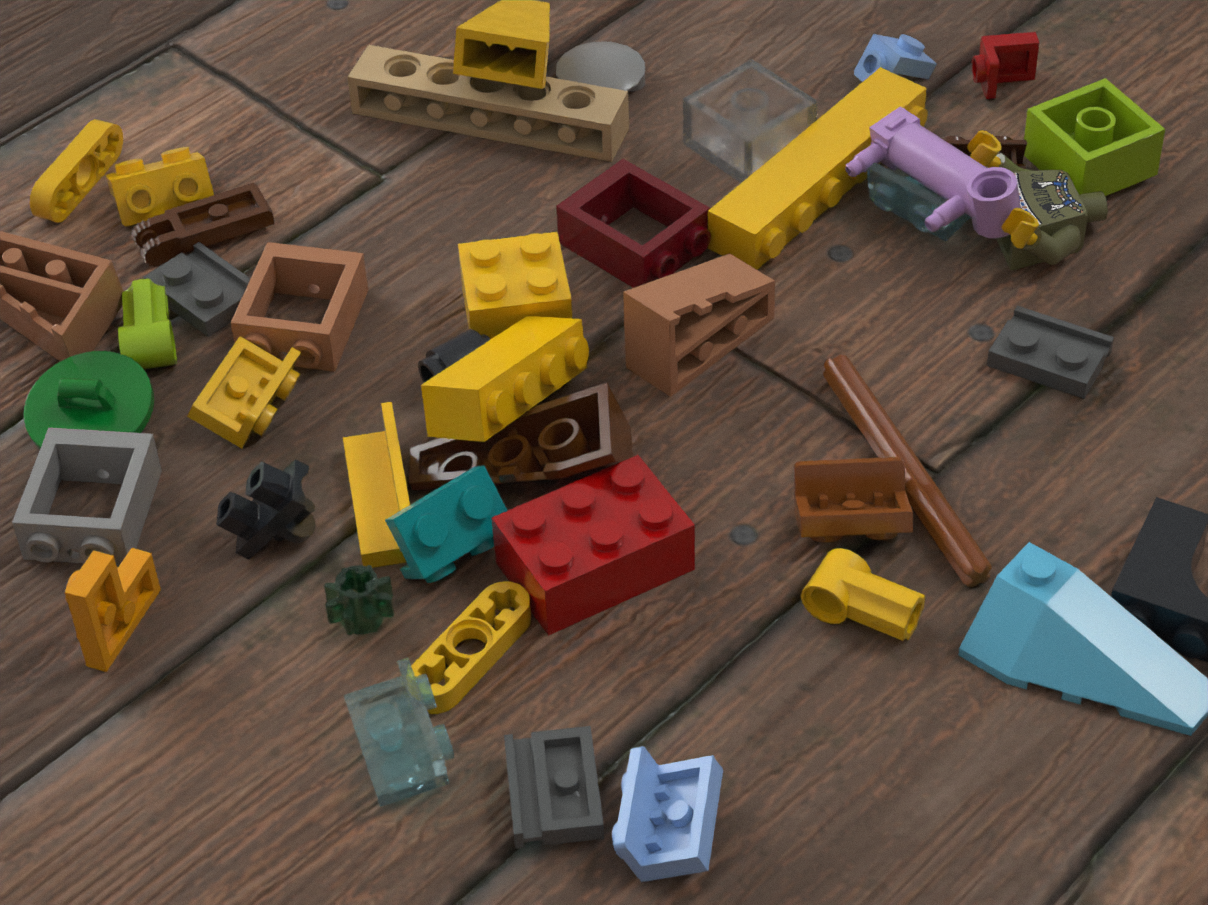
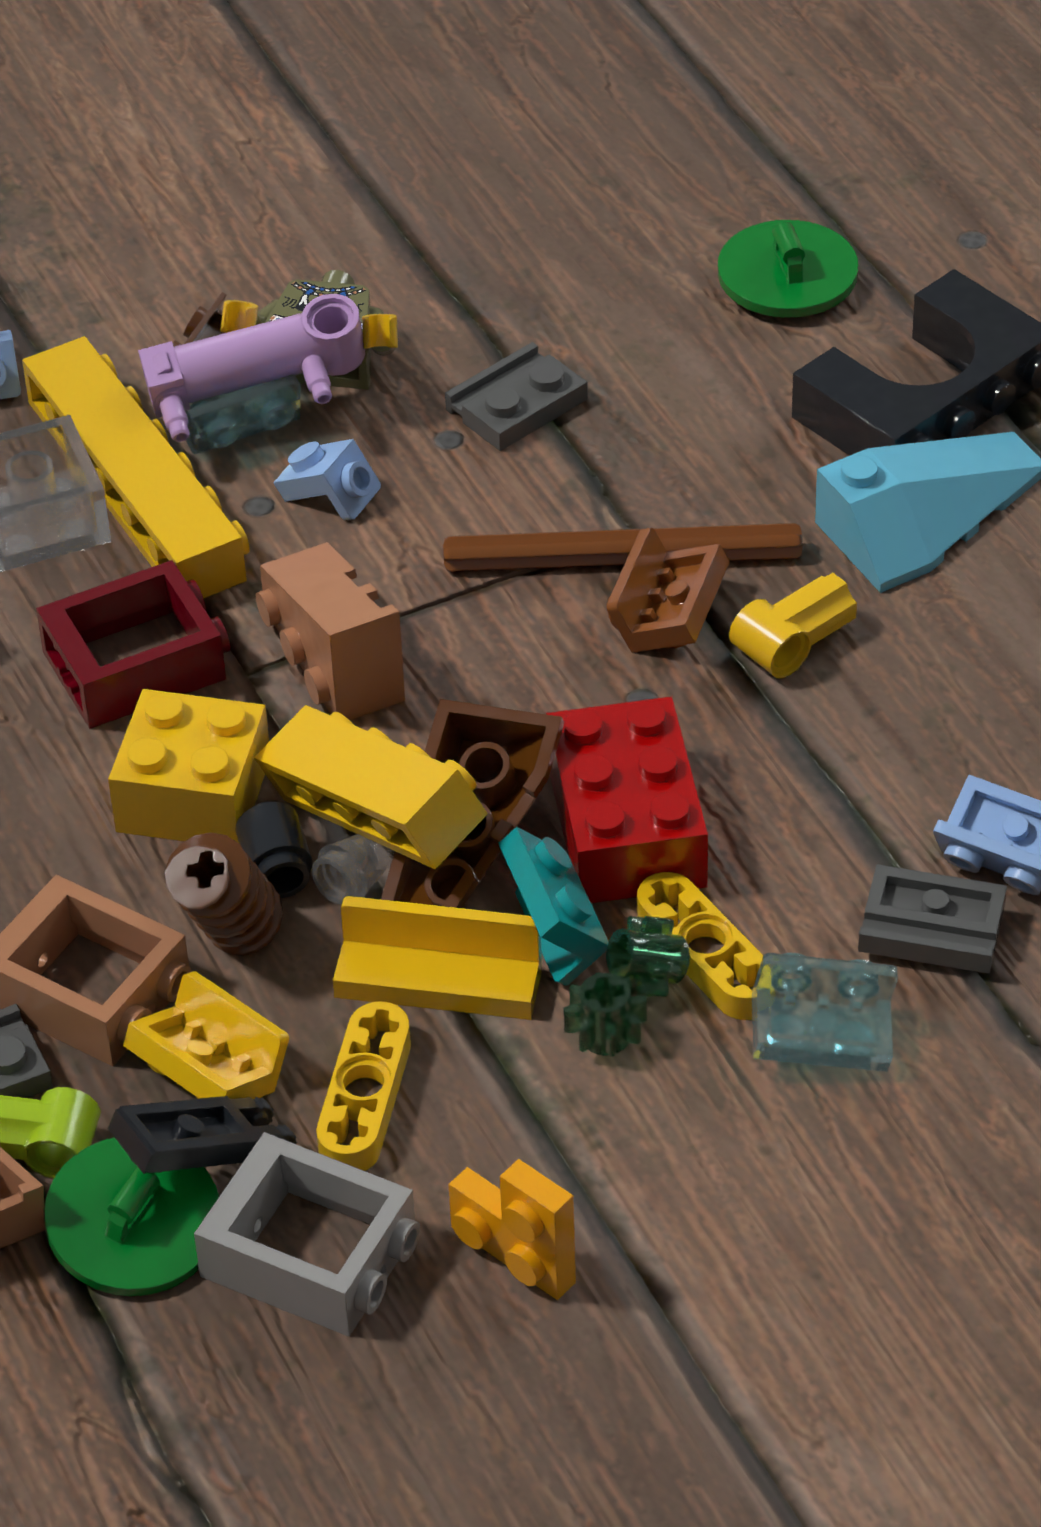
camera: 70 degrees left, 0 degrees up
(143, 403) = (193, 1132): none -> black hinge
(230, 478) = (358, 1062): none -> yellow beam
(276, 511) = (439, 1053): black hips -> none
(368, 336) = (224, 893): none -> reddish brown piece
(423, 605) = (648, 955): none -> clear green gear
(876, 275) = (333, 471): none -> light blue bracket
(1005, 60) = (51, 277): red bracket -> none
(1094, 138) = (248, 243): lime brick -> none

